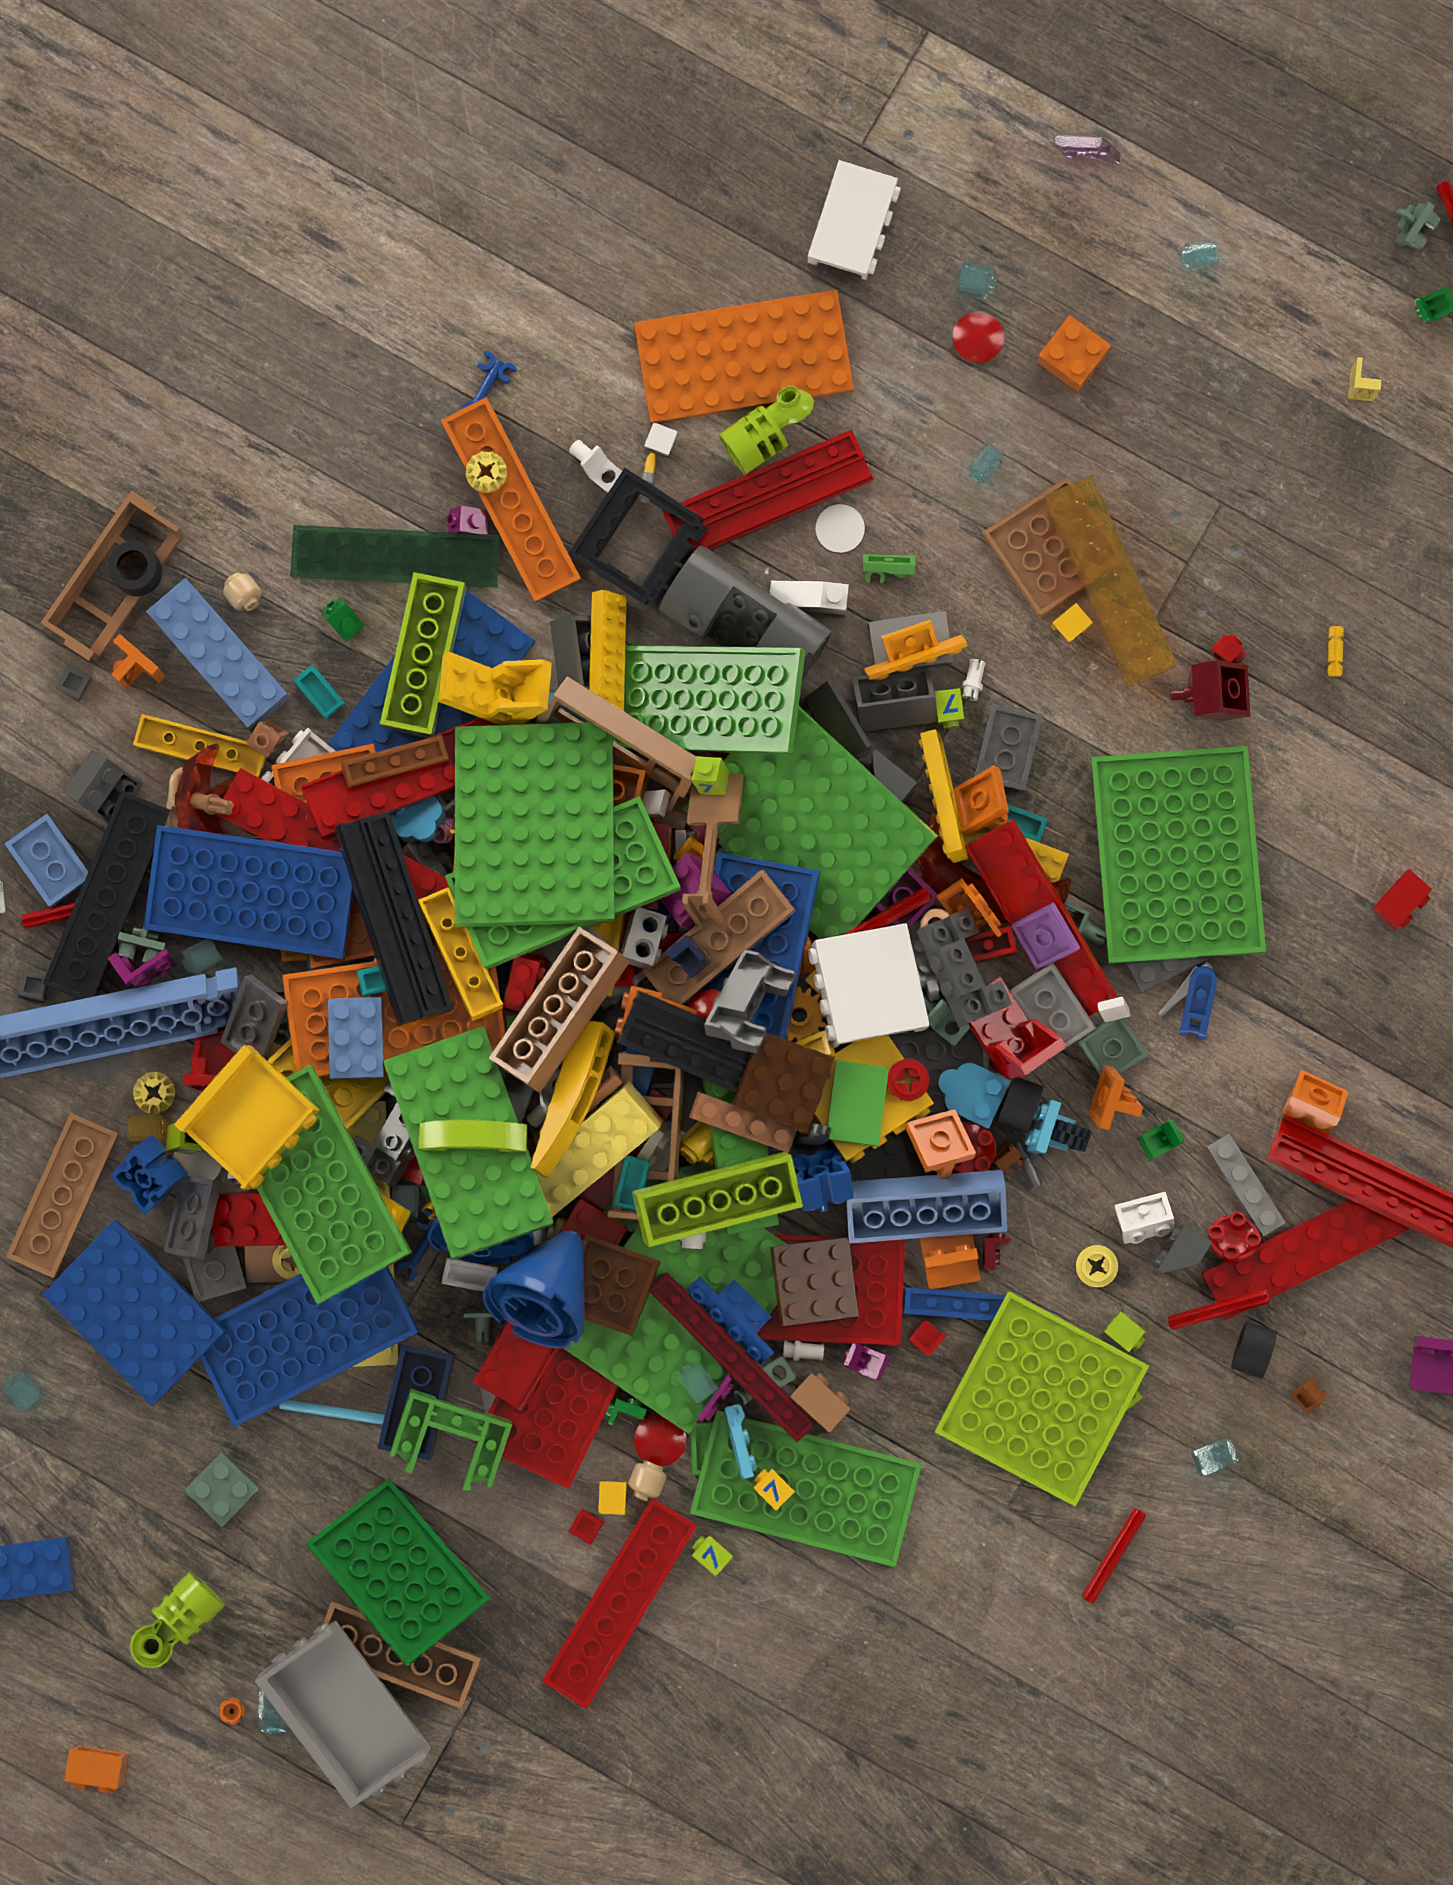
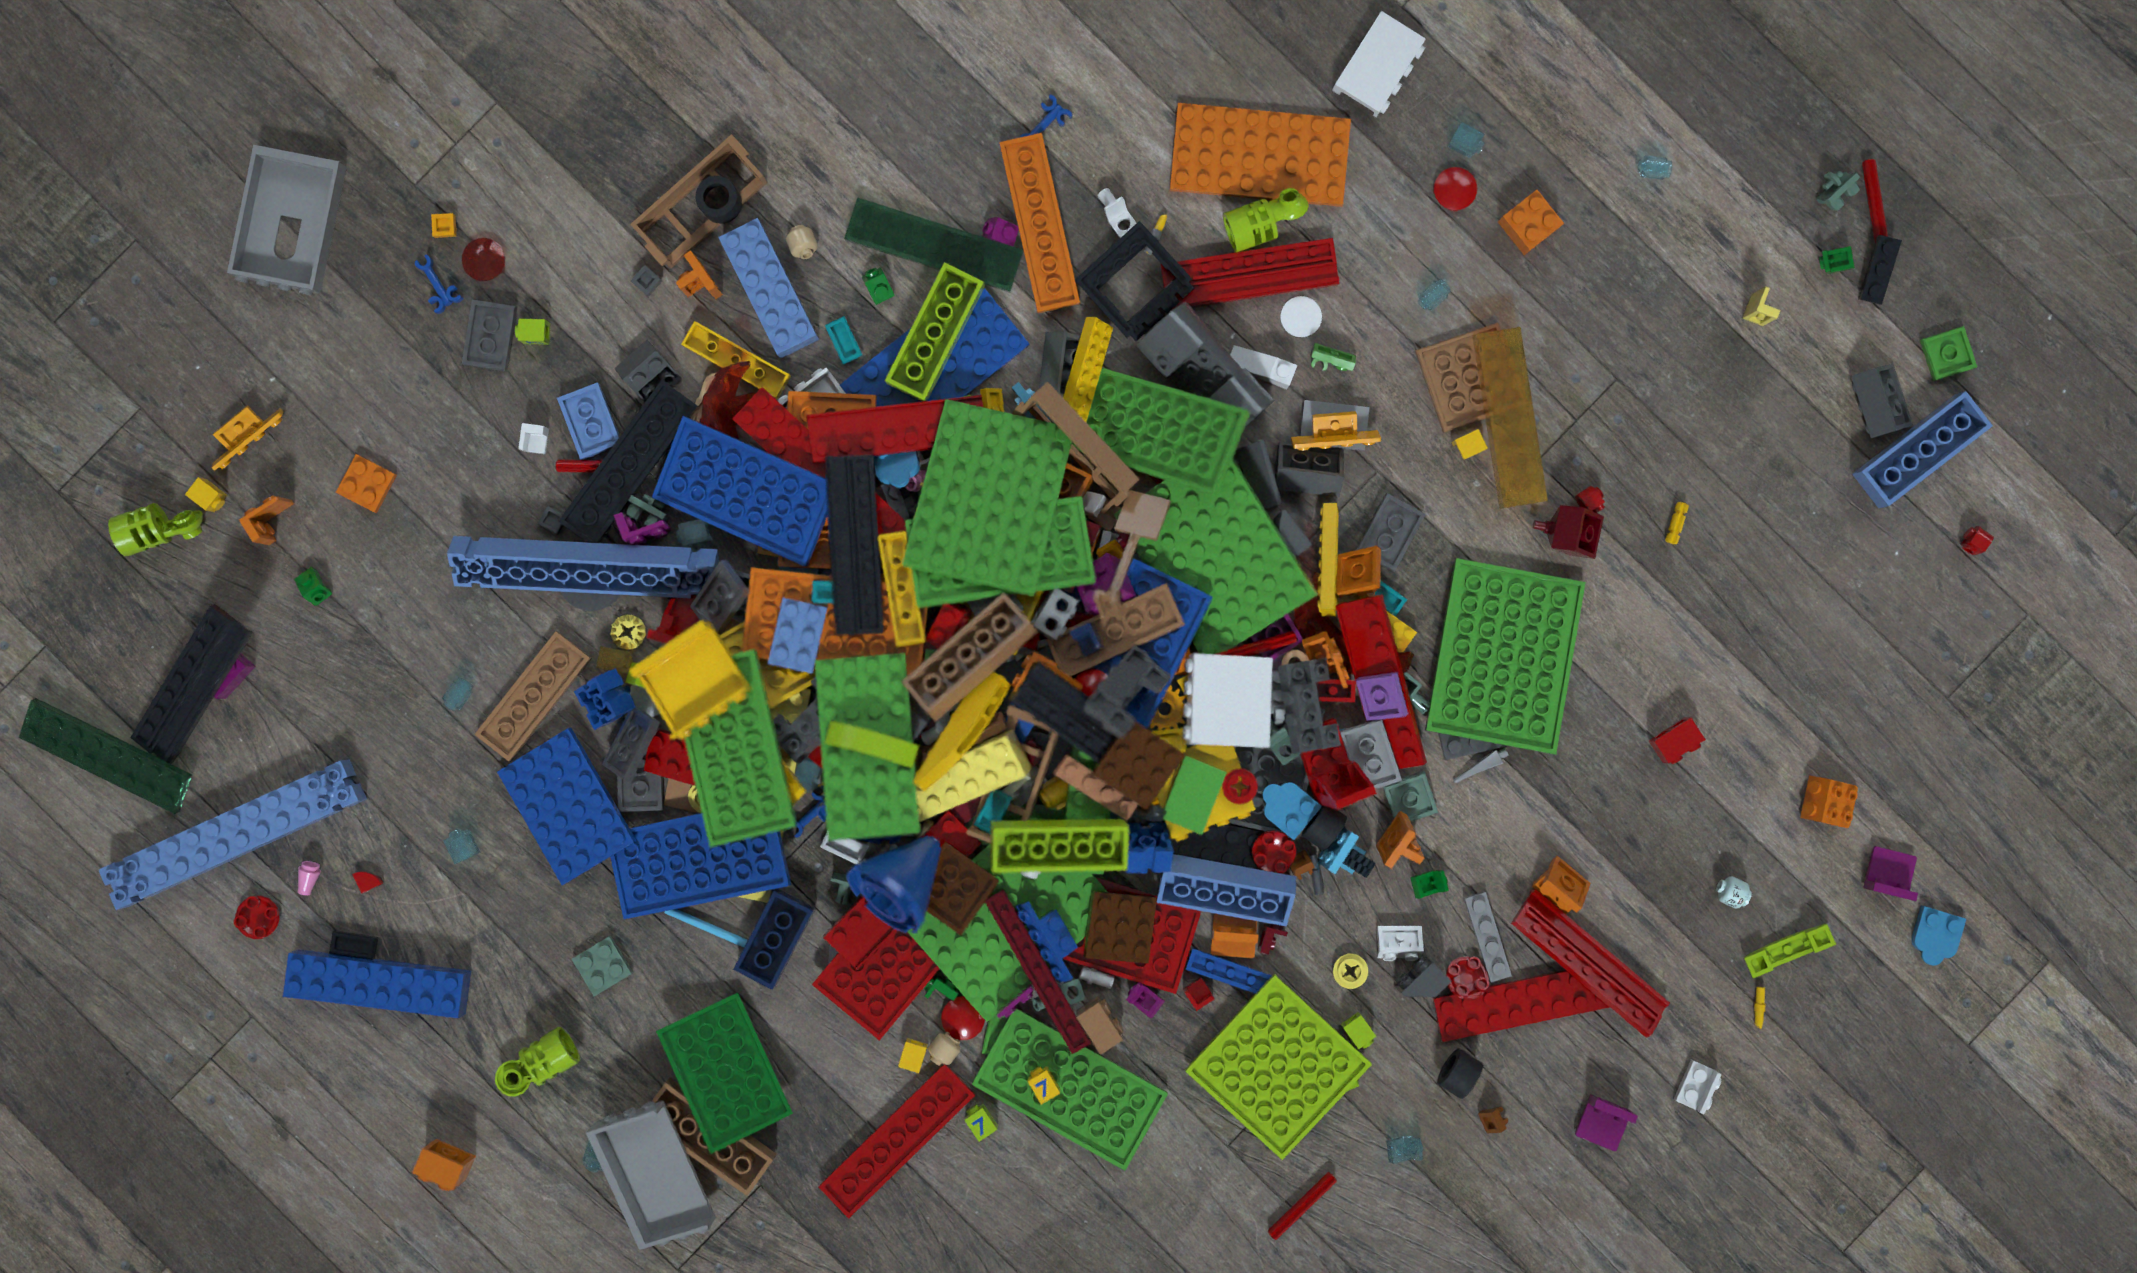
camera: 10 degrees right, 5 degrees up
(211, 804) = (731, 410): medium nougat axle -> none
(226, 1716) = (559, 1145): orange plate -> none
(266, 737) = (791, 366): nougat bracket -> none
(394, 761) = (888, 414): dark orange tile -> none
(486, 484) = (1022, 204): light yellow gear -> none
(486, 1429) = (778, 951): bright green wedge -> none
(500, 694) = (991, 382): yellow bracket -> none
(586, 1526) = (886, 1071): red tile -> none
(661, 439) = (1174, 205): white tile -> none
(697, 1381) = (1004, 985): clear light blue brick -> none
(710, 775) = (1144, 495): lime brick -> none
(739, 1440) = (1027, 1038): medium azure hinge -> none
(940, 1142) = (1252, 843): orange bracket -> none
(949, 708) = (1352, 488): lime brick -> none
(972, 684) = (1375, 473): white pin -> none
(1087, 147) = (1587, 53): clear purple wing -> none
(1113, 1009) = (1421, 770): white tile -> none
(1199, 1002) = (1490, 780): blue plate -> none
(1218, 1309) = (1440, 1033): red axle -> none

